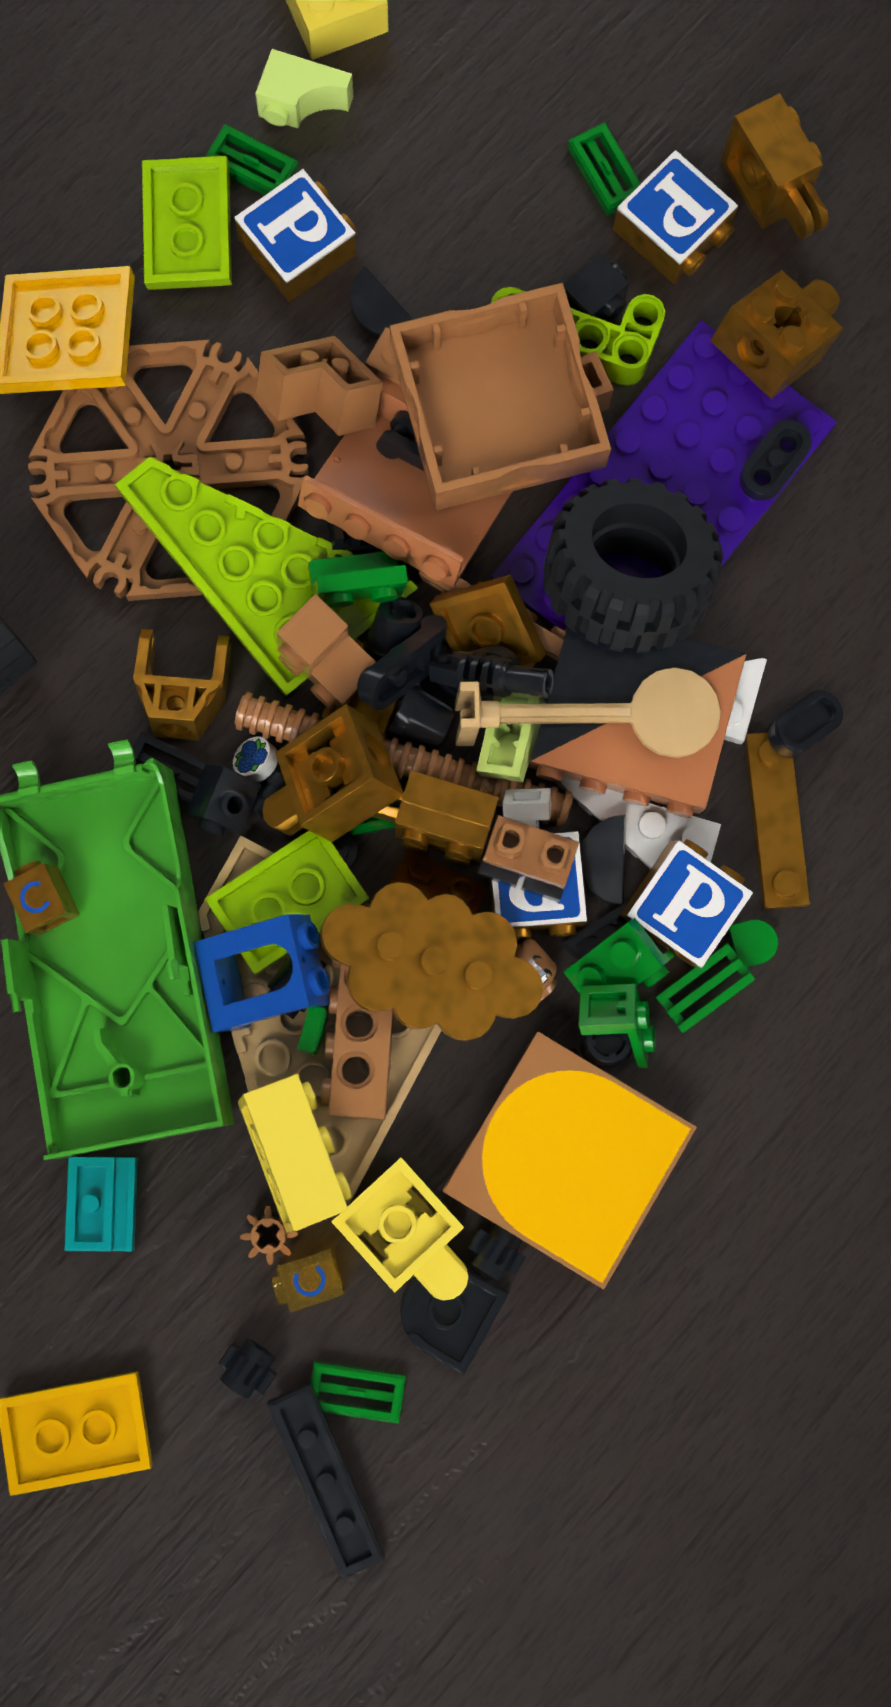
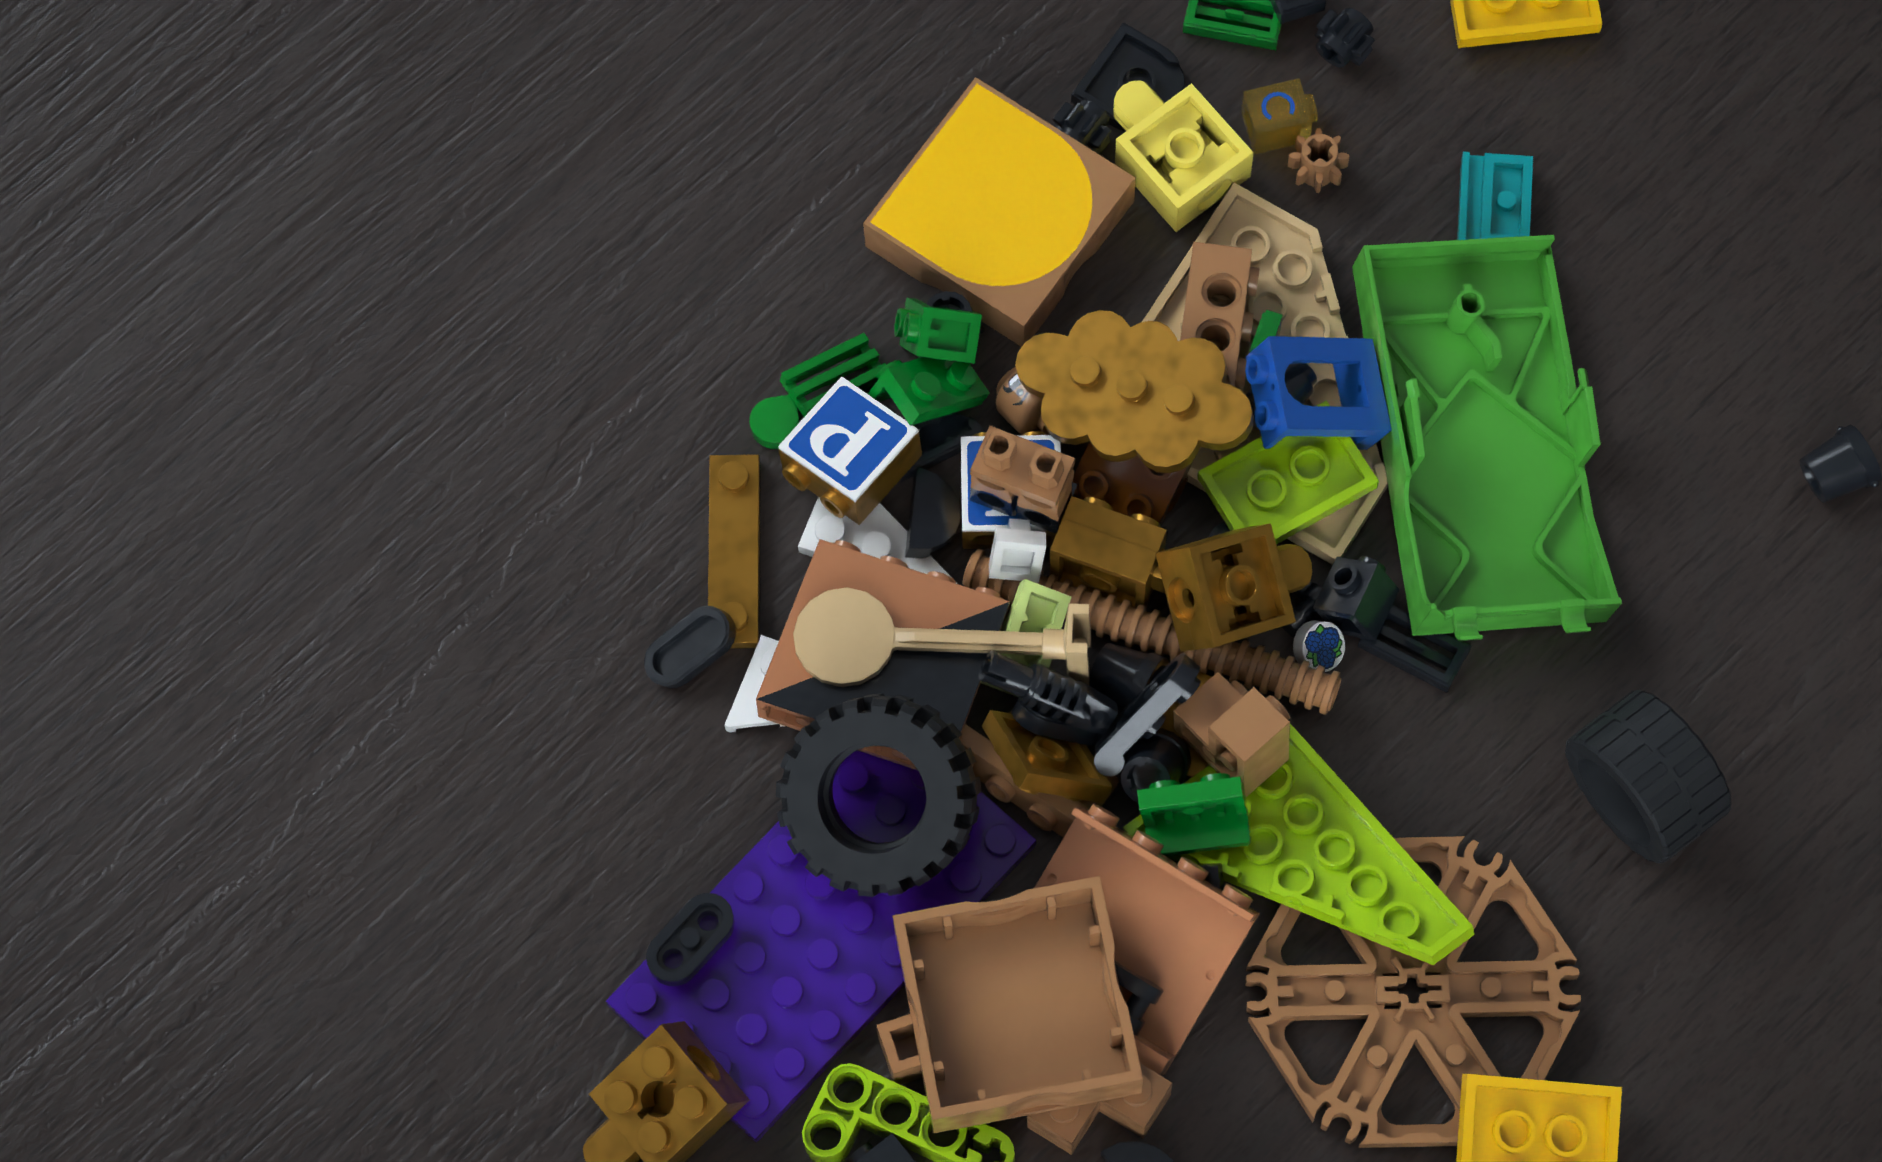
camera: 165 degrees left, 10 degrees down
(40, 897) = (1559, 497): pearl gold brick -> none
(180, 705) = (1428, 713): pearl gold piece -> none
(294, 1153) = (1289, 212): light yellow brick -> none
(319, 379) = (1223, 1070): medium nougat brick -> none

